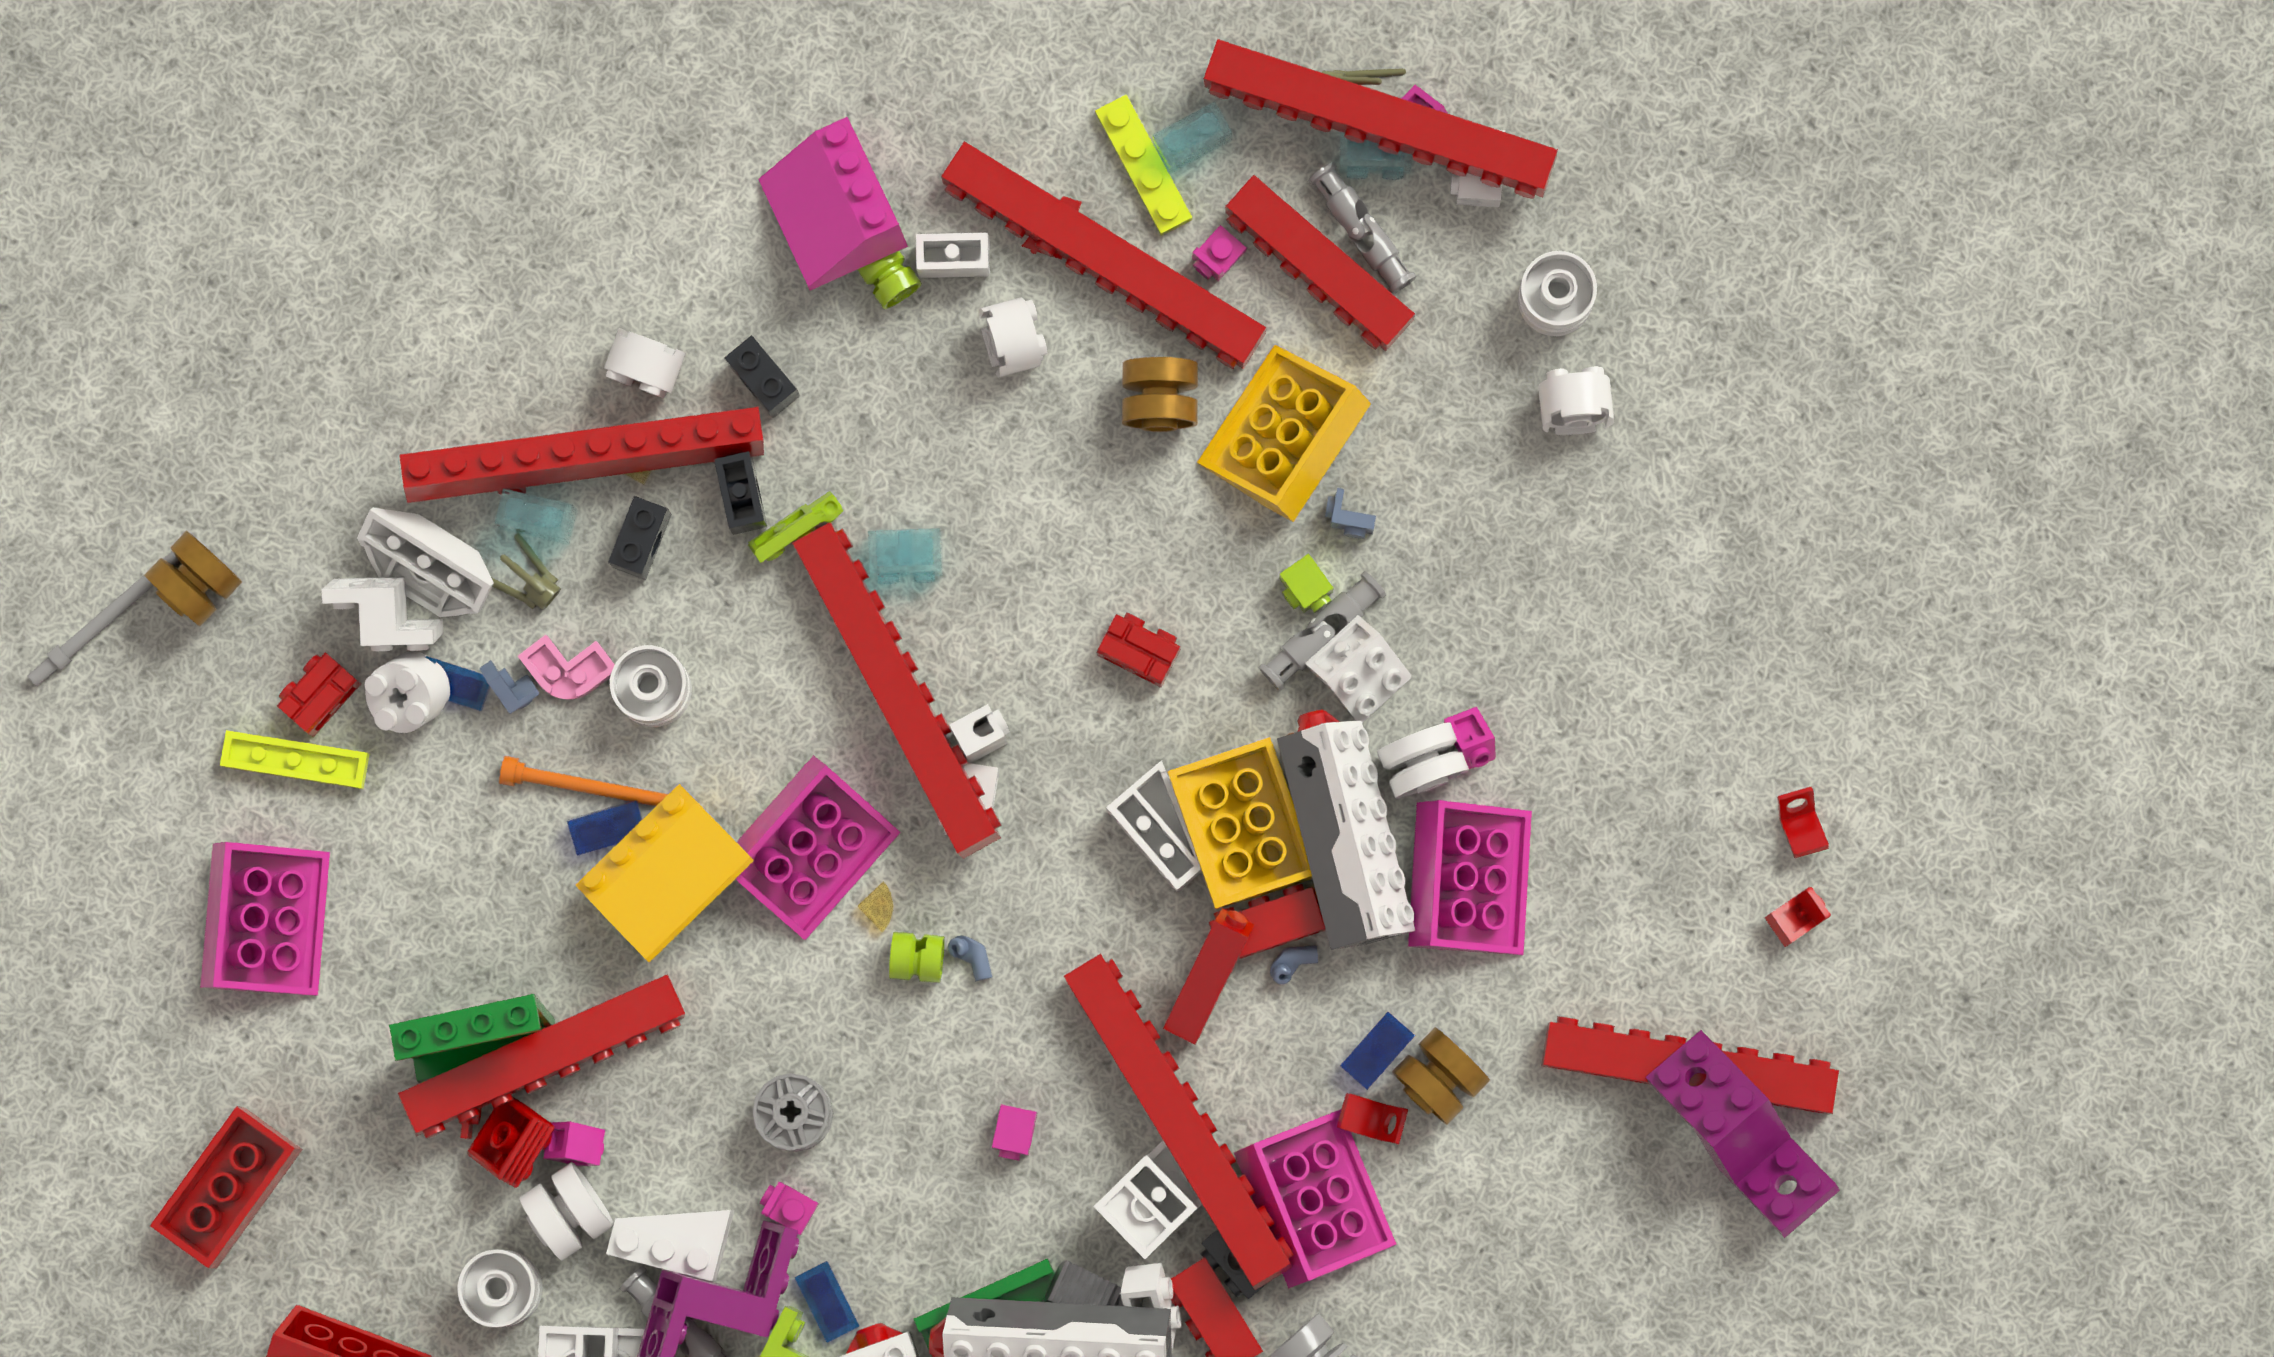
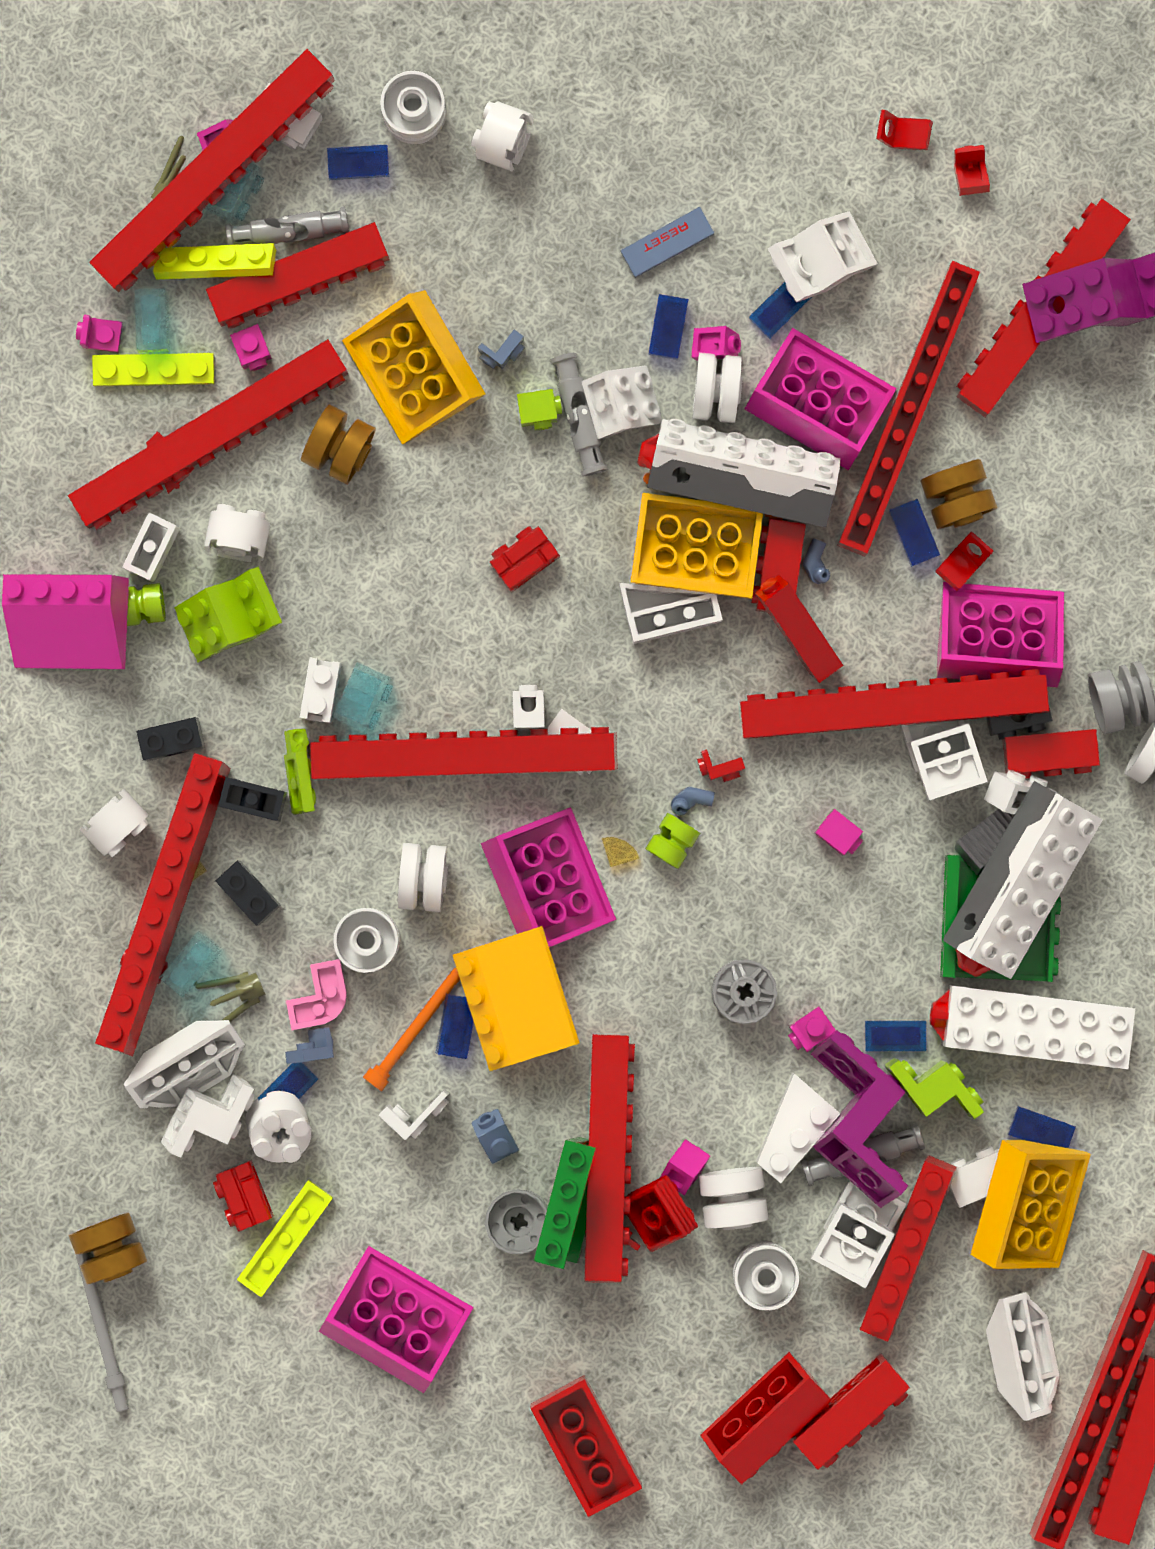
camera: 70 degrees left, 5 degrees up
(419, 976) = (502, 1229): none -> light grey wheel
(479, 813) = (397, 1117): none -> white bracket
(510, 926) = (494, 1136): none -> sand blue bracket
(745, 710) = (422, 877): none -> white wheel
(891, 506) = (320, 690): none -> white brick
(922, 369) = (227, 614): none -> lime bracket
(1021, 978) = (727, 770): none -> red bracket
(1152, 90) = (99, 334): none -> dark pink bracket
(1288, 170) = (215, 261): none -> neon yellow plate
(1464, 678) = (668, 327): none -> clear blue plate
(1471, 266) = (358, 162): none -> clear blue plate
(1506, 976) = (908, 408): none -> red brick
(1547, 787) = (776, 311): none -> clear blue plate
(1554, 632) = (667, 242): none -> sand blue tile
(1622, 803) = (822, 256): none -> white bracket

